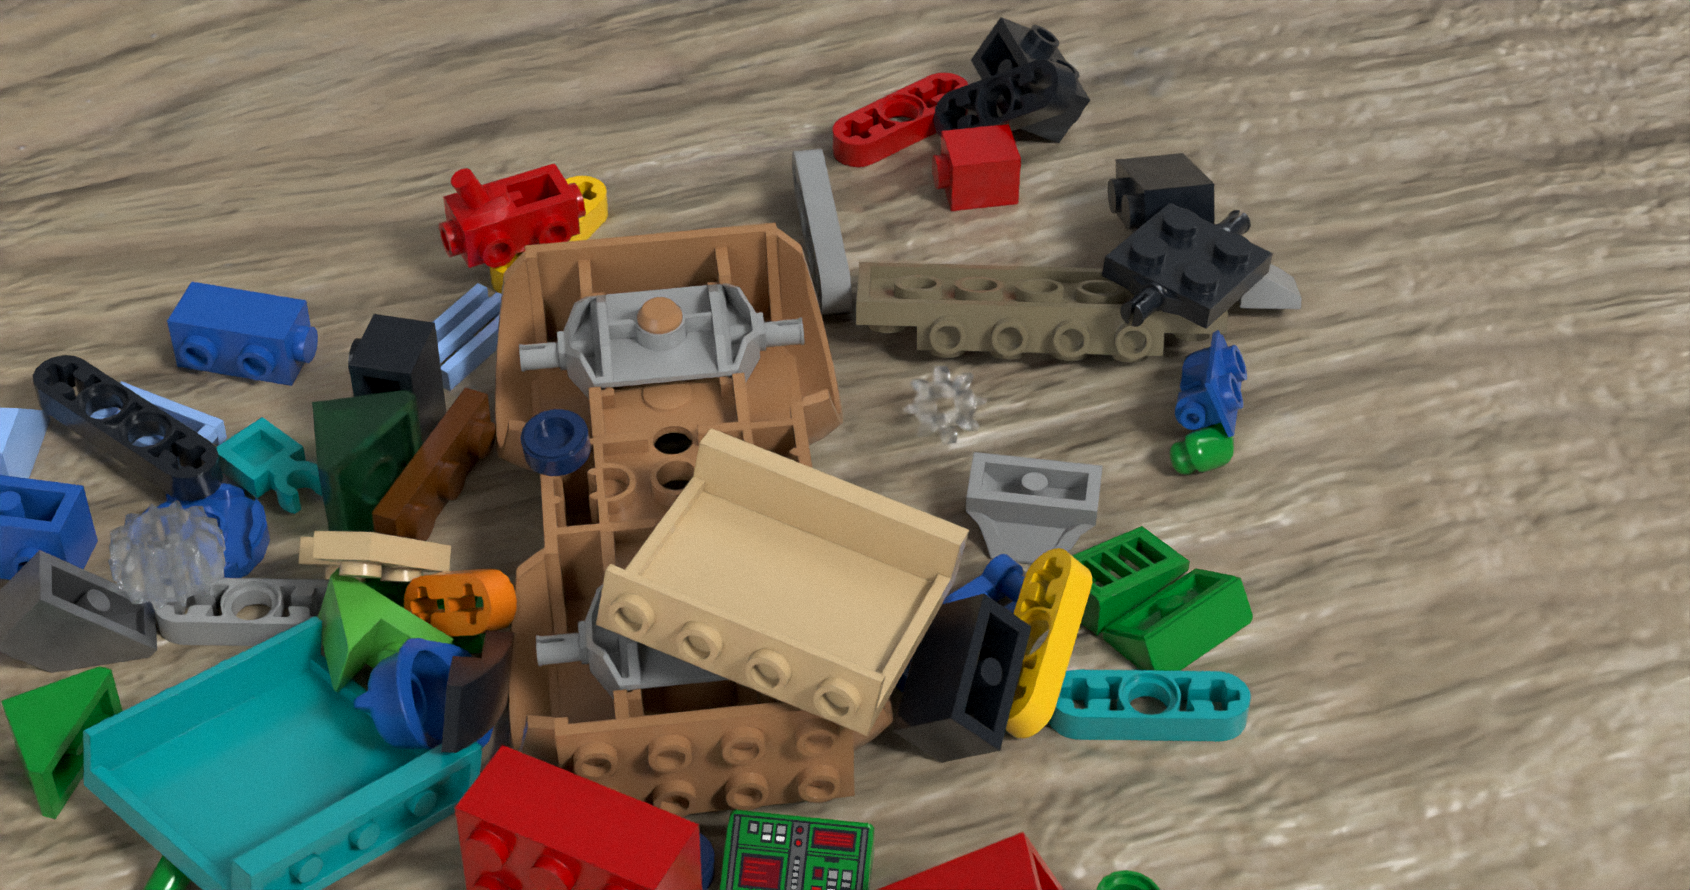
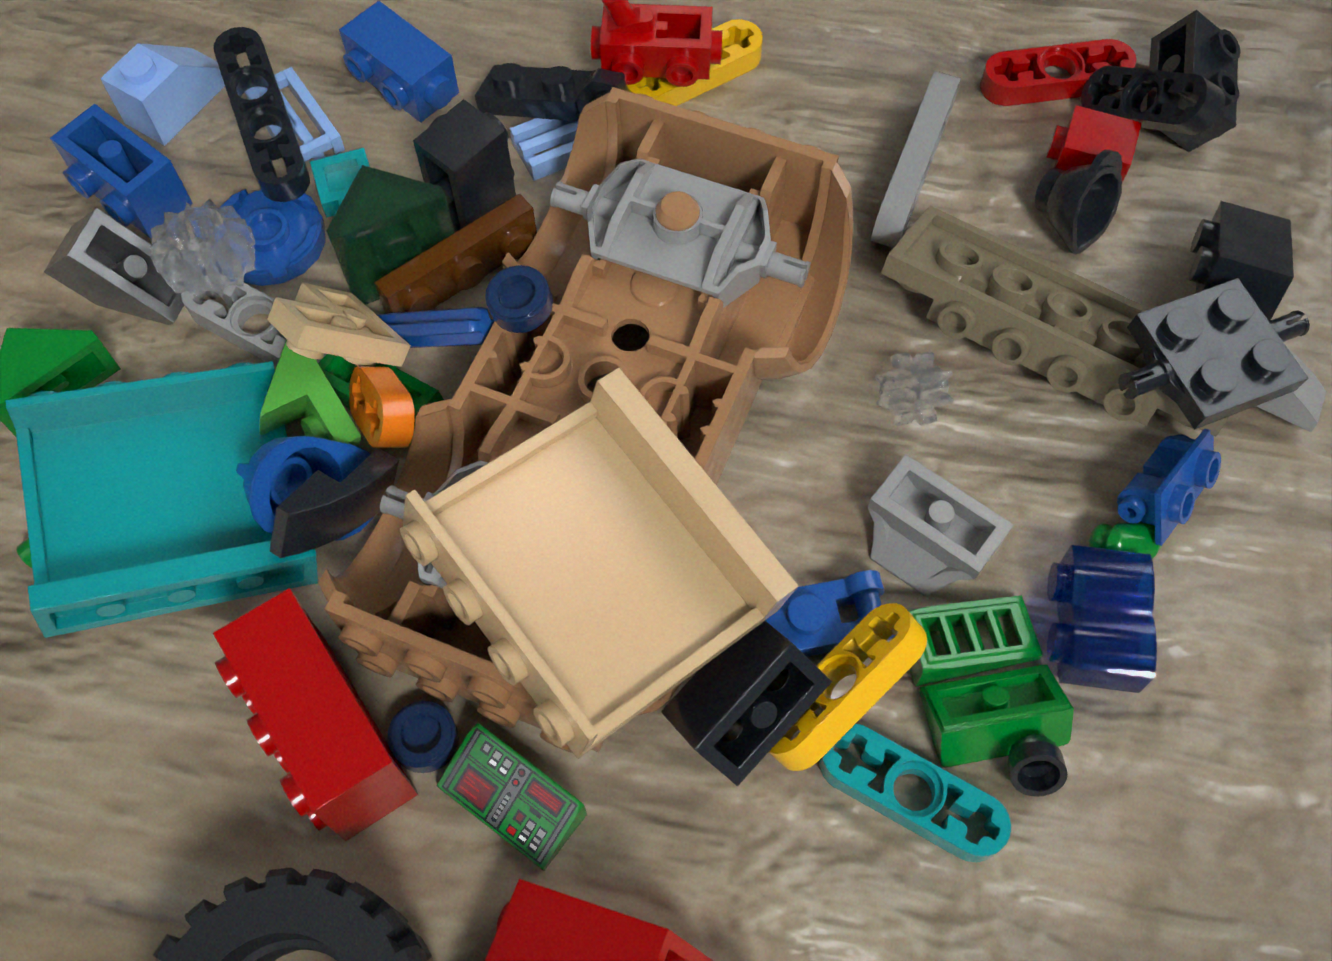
camera: 30 degrees right, 20 degrees up
(430, 296) = (543, 92): none -> black hinge
(482, 511) = (441, 327): none -> blue axle
(992, 206) = (1082, 199): none -> black piece
(1222, 508) = (1104, 619): none -> clear blue brick
(1242, 645) = (1036, 766): none -> black hinge

